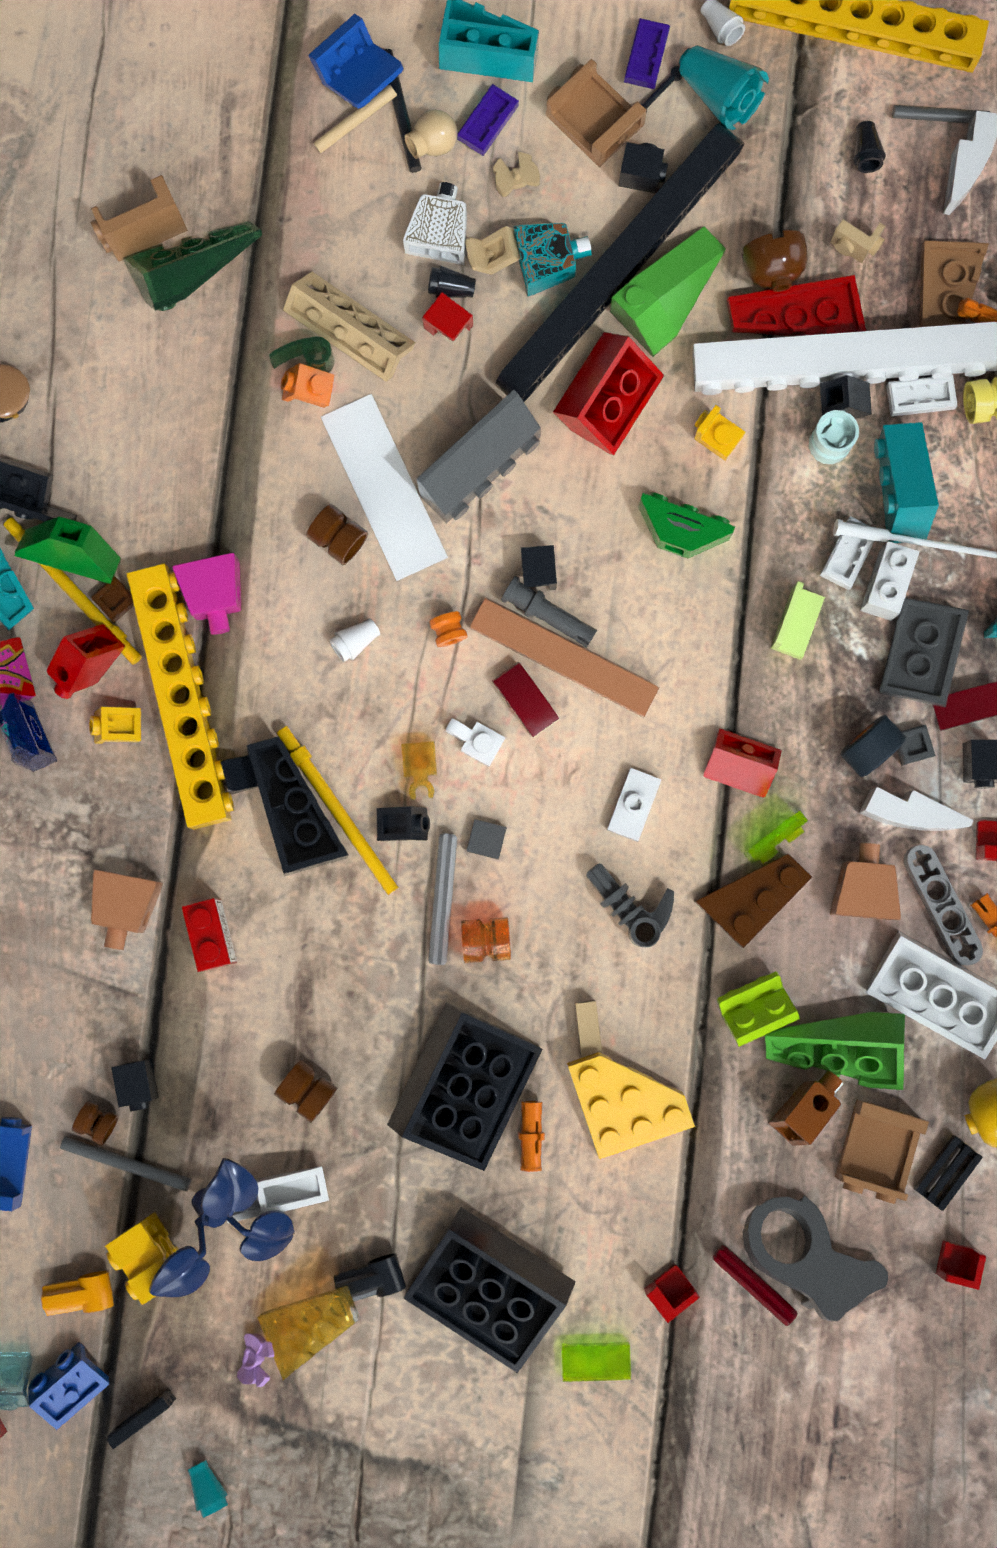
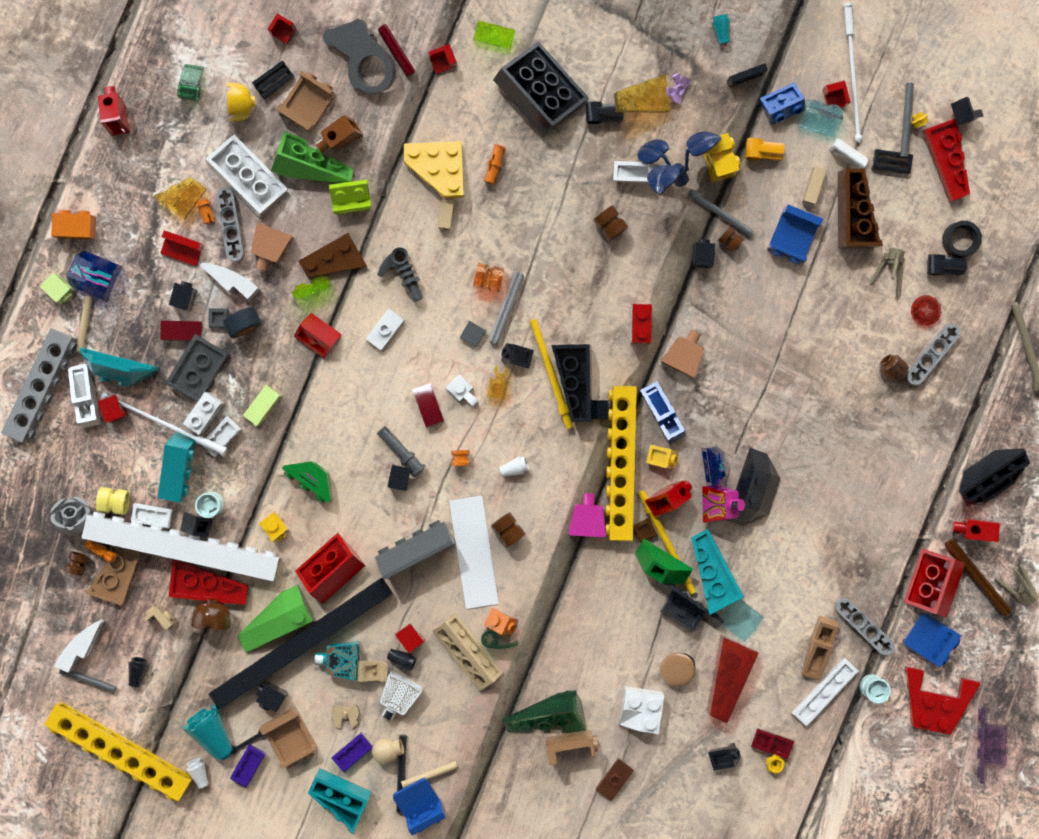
camera: 175 degrees left, 5 degrees up
(41, 312) = (641, 709): none -> white slope
(58, 195) = (614, 779): none -> copper plate
(133, 799) = (663, 412): none -> slope
(464, 1087) = (523, 201): black slope -> none
(564, 658) = (399, 423): nougat tile -> none

